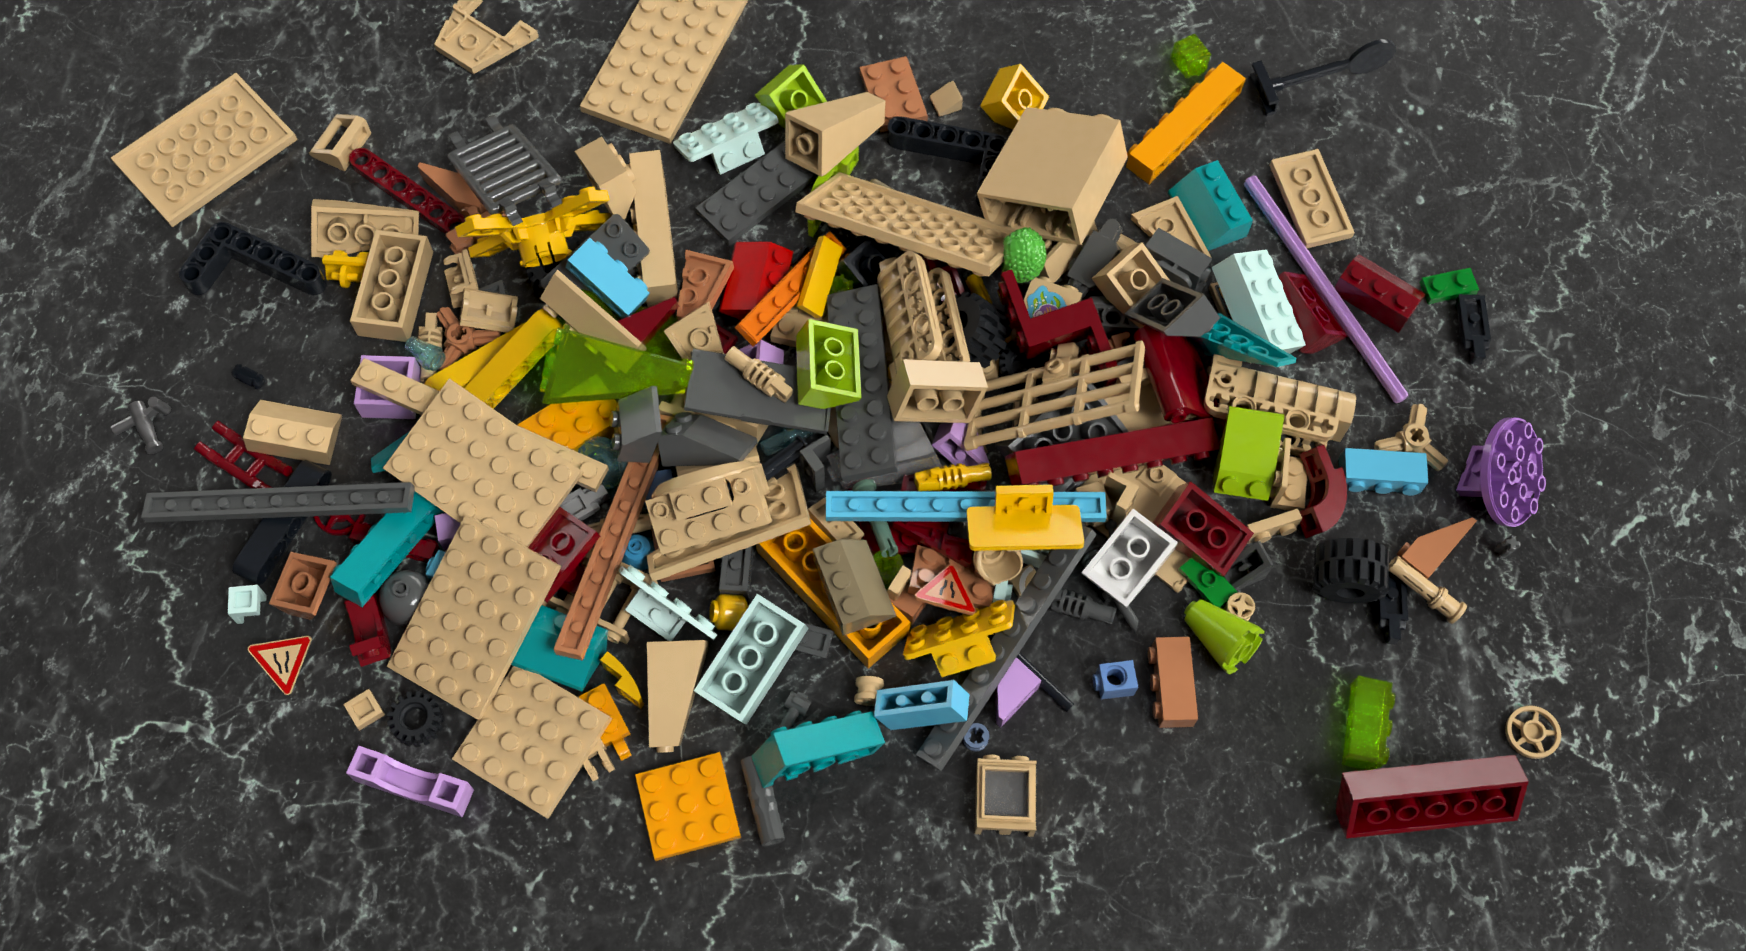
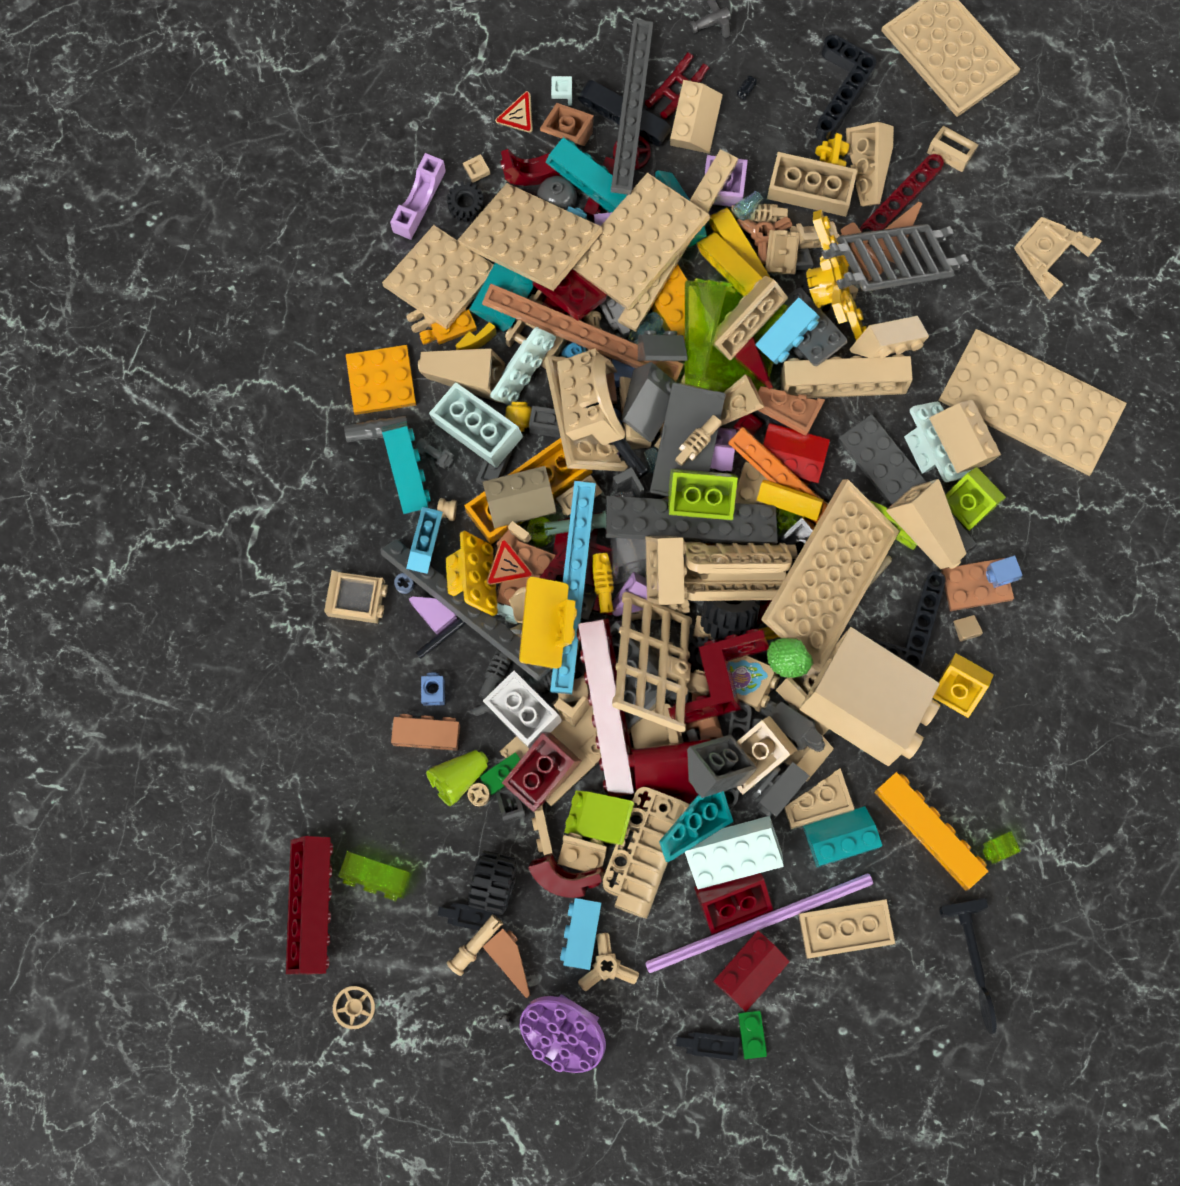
camera: 100 degrees right, 10 degrees up
(719, 104) = (965, 436): none -> tan slope
(881, 59) = (1003, 572): none -> medium blue brick

